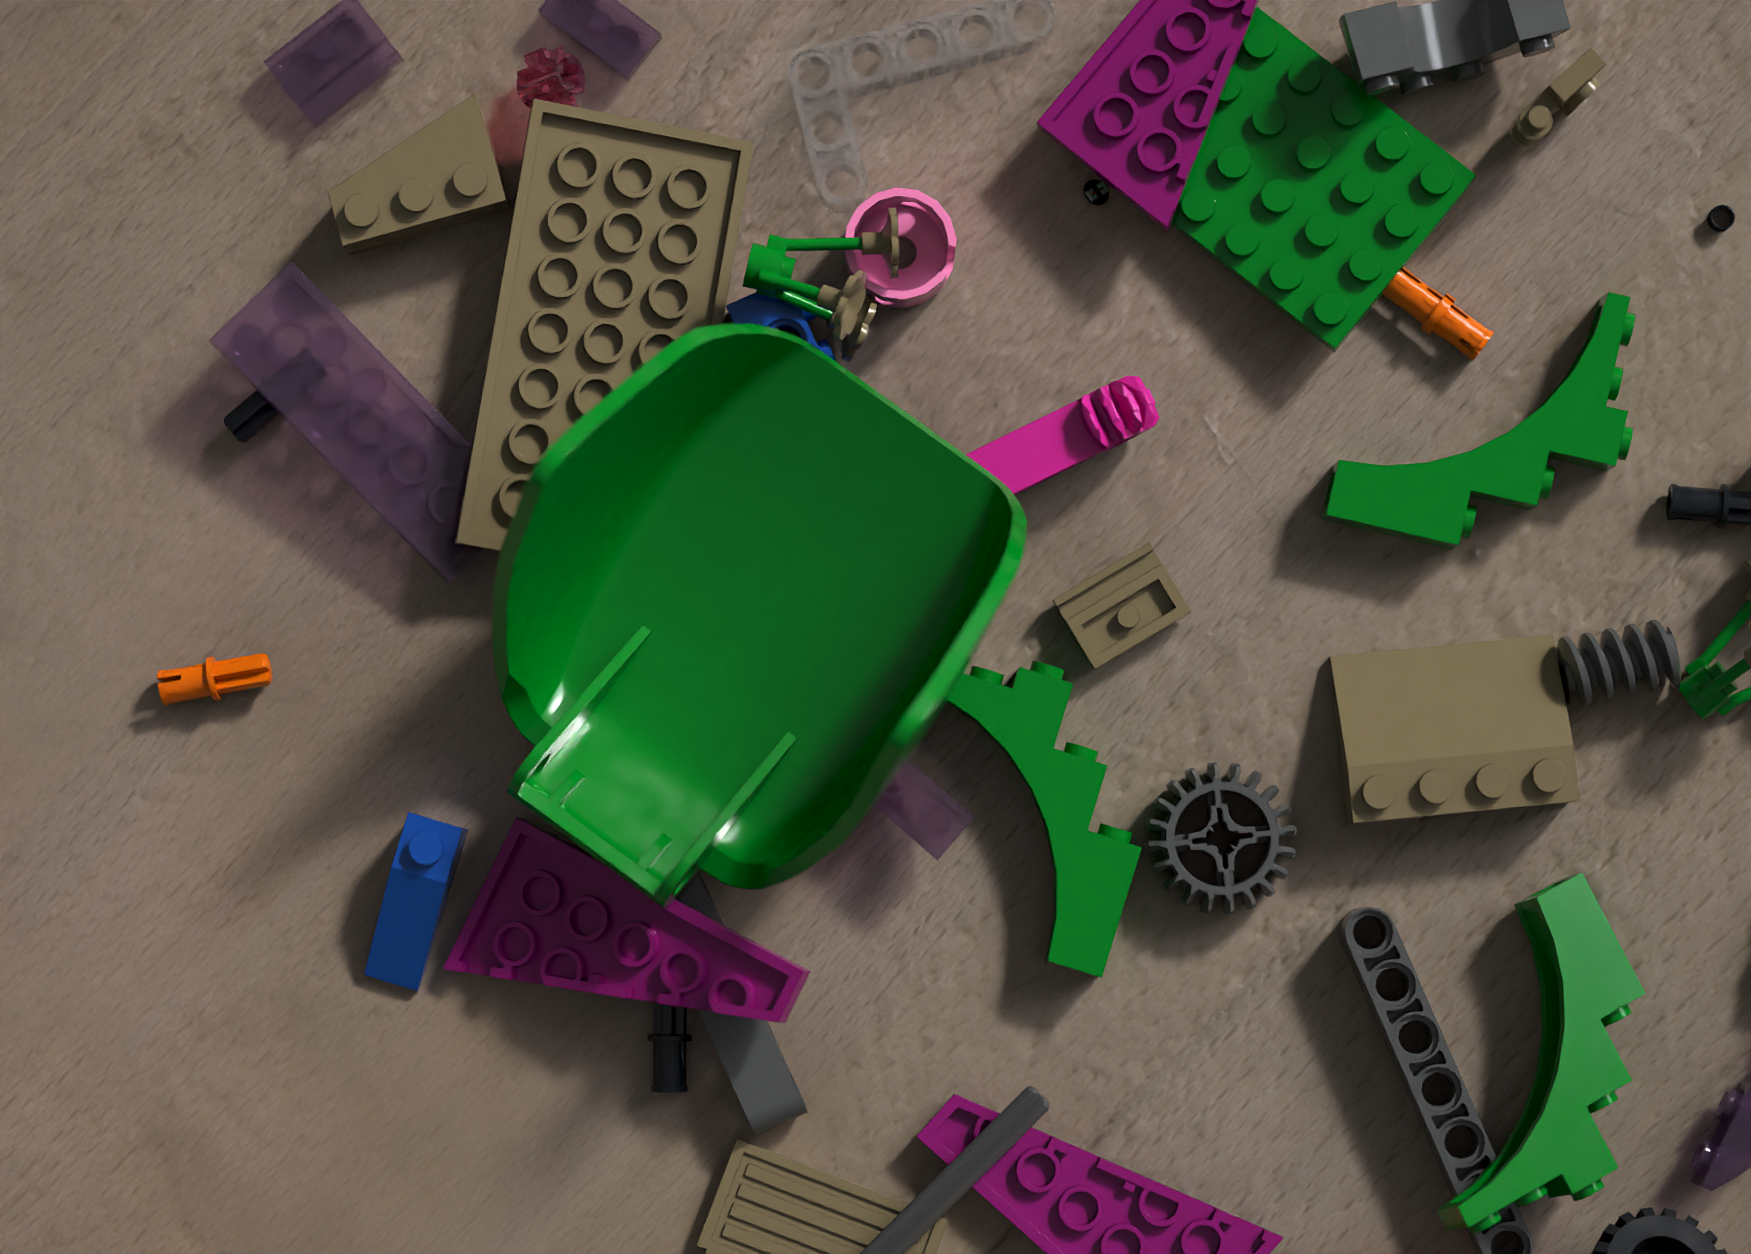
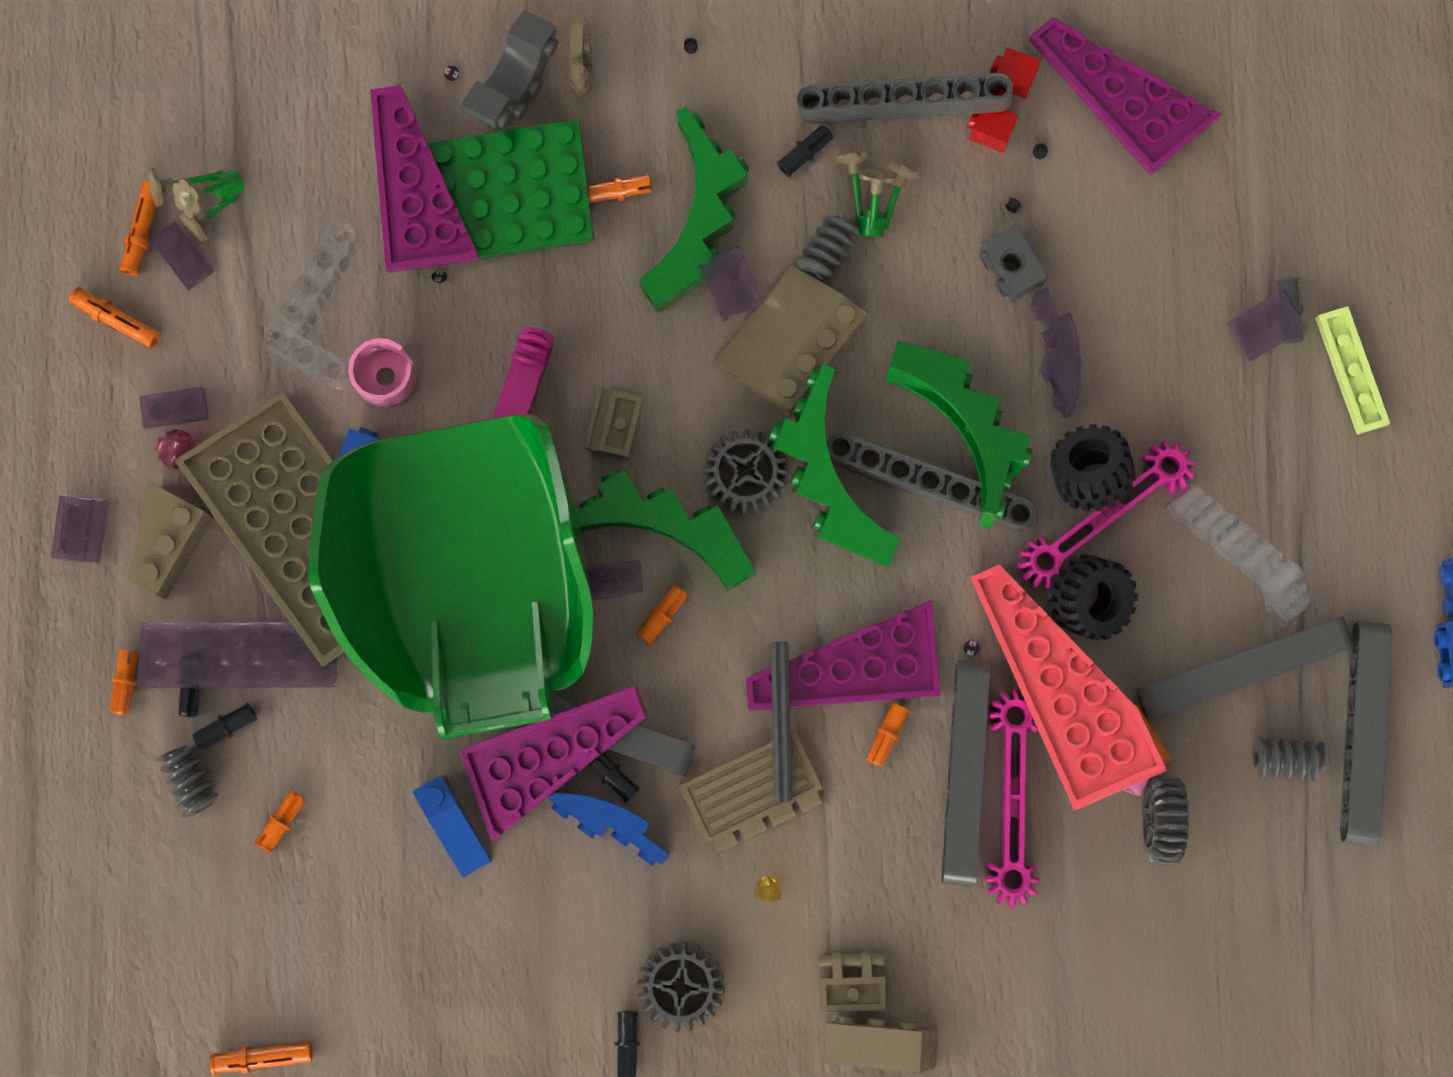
camera: 45 degrees left, 5 degrees down
(155, 513) = (188, 780): none -> dark grey piece
(198, 309) = (124, 682): none -> orange axle
(264, 490) = (224, 726): none -> black axle
(604, 1074) = (599, 815): none -> blue slope
(844, 310) = (341, 432): plant -> none
(934, 907) = (662, 614): none -> orange axle
(1332, 882) = (817, 480): none -> green arch
(1449, 583) = (731, 283): none -> clear purple plate

